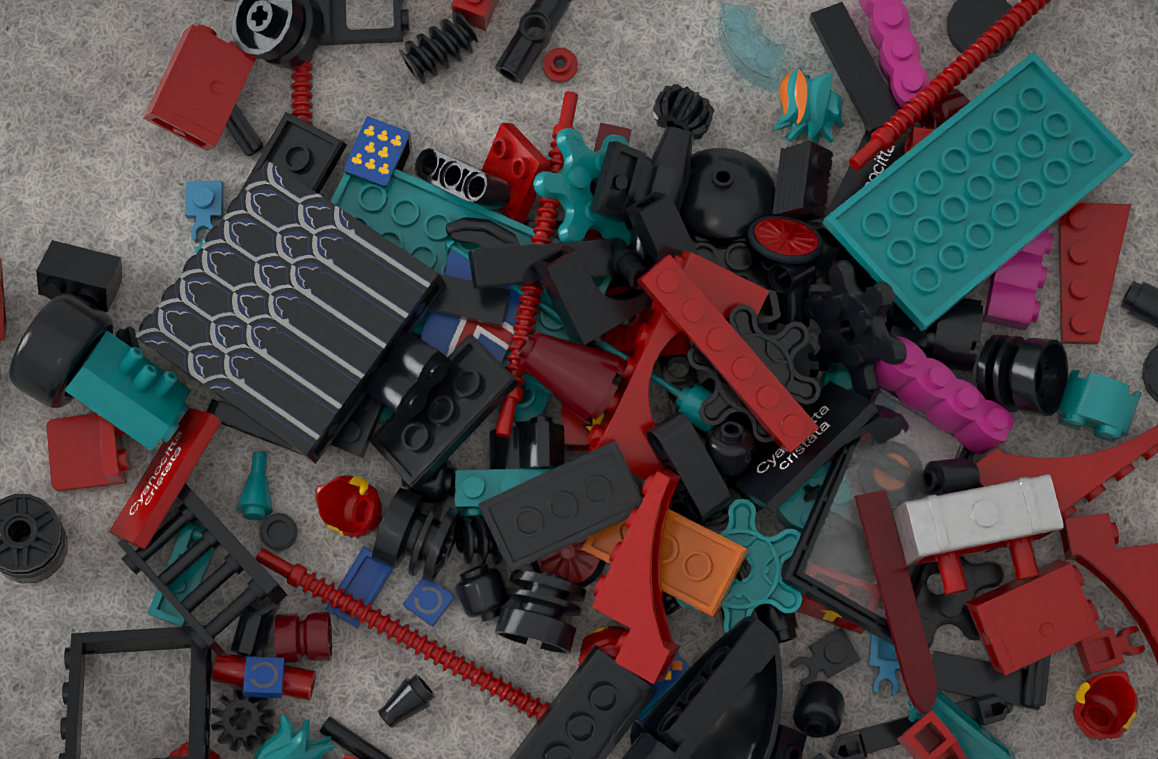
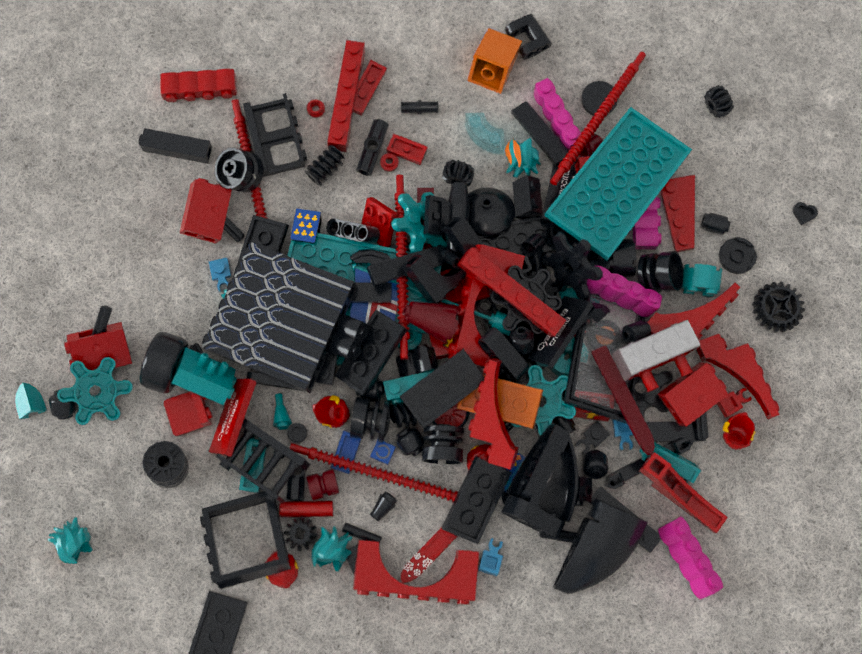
camera: 15 degrees left, 0 degrees up
(81, 272) = (163, 320): black brick -> none
(264, 677) = (307, 509): blue tile -> none
(598, 47) = (407, 149): none -> red plate
(785, 239) = (525, 228): red wheel -> none

